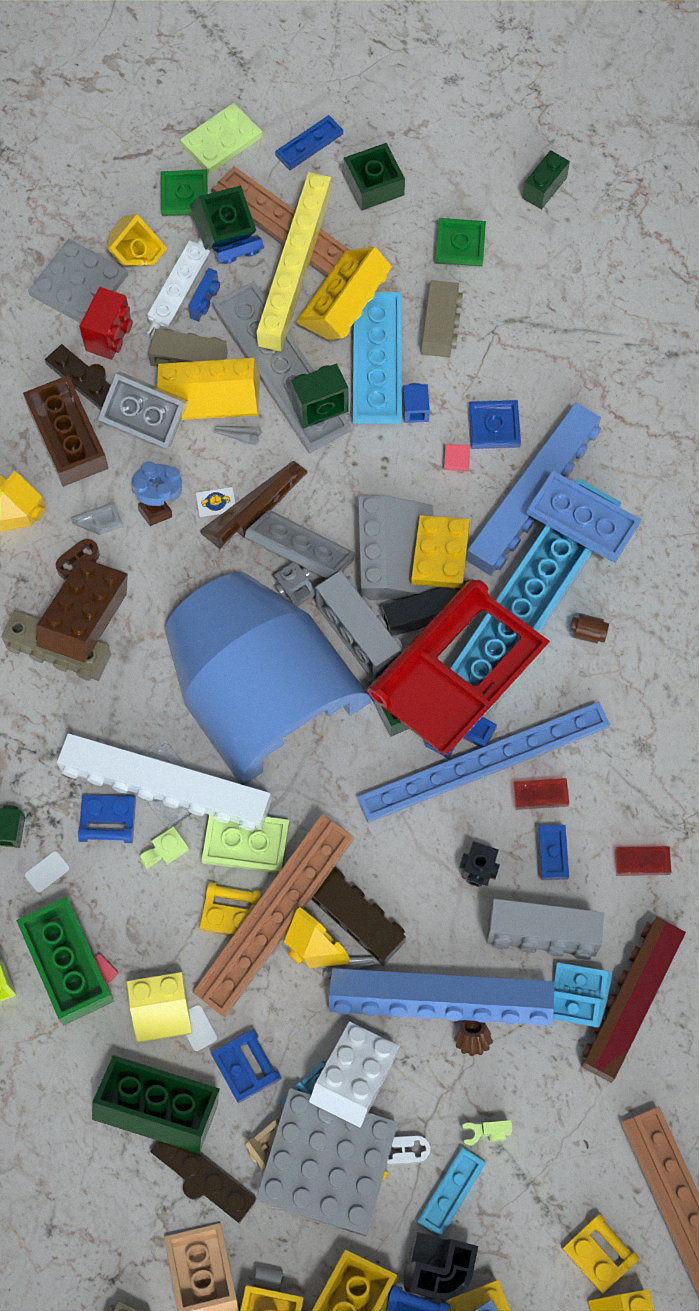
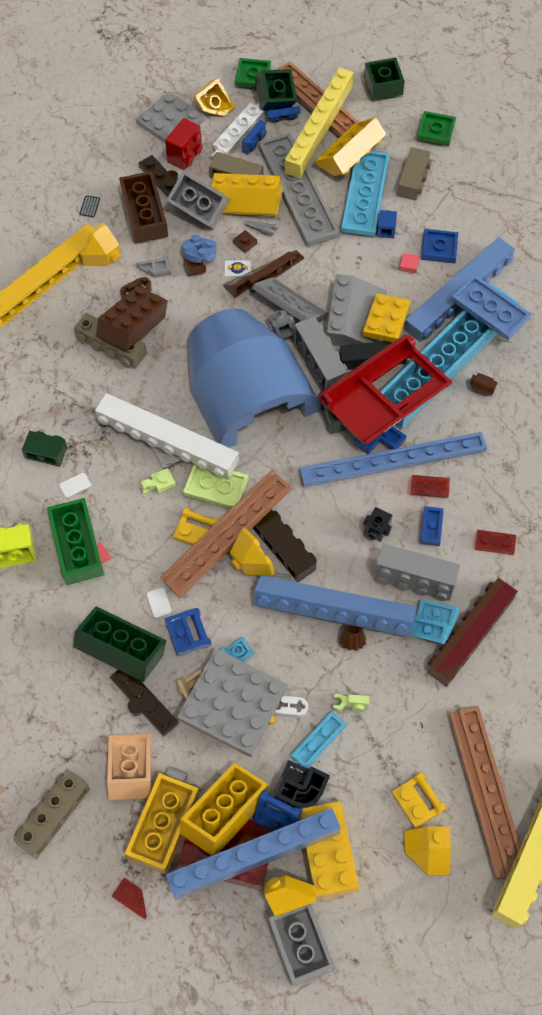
camera: 10 degrees right, 5 degrees down
(107, 810) = (126, 452): blue plate -> none
(159, 1007) = (135, 582): light yellow slope -> none
(219, 459) = (245, 241): none -> reddish brown plate
(221, 138) = (284, 44): yellowish green plate -> none
(309, 142) = (343, 54): blue tile -> none
(320, 395) = (320, 206): dark green brick -> none
(354, 1074) = (262, 646): white brick -> none
(545, 179) = (502, 97): dark green brick -> none

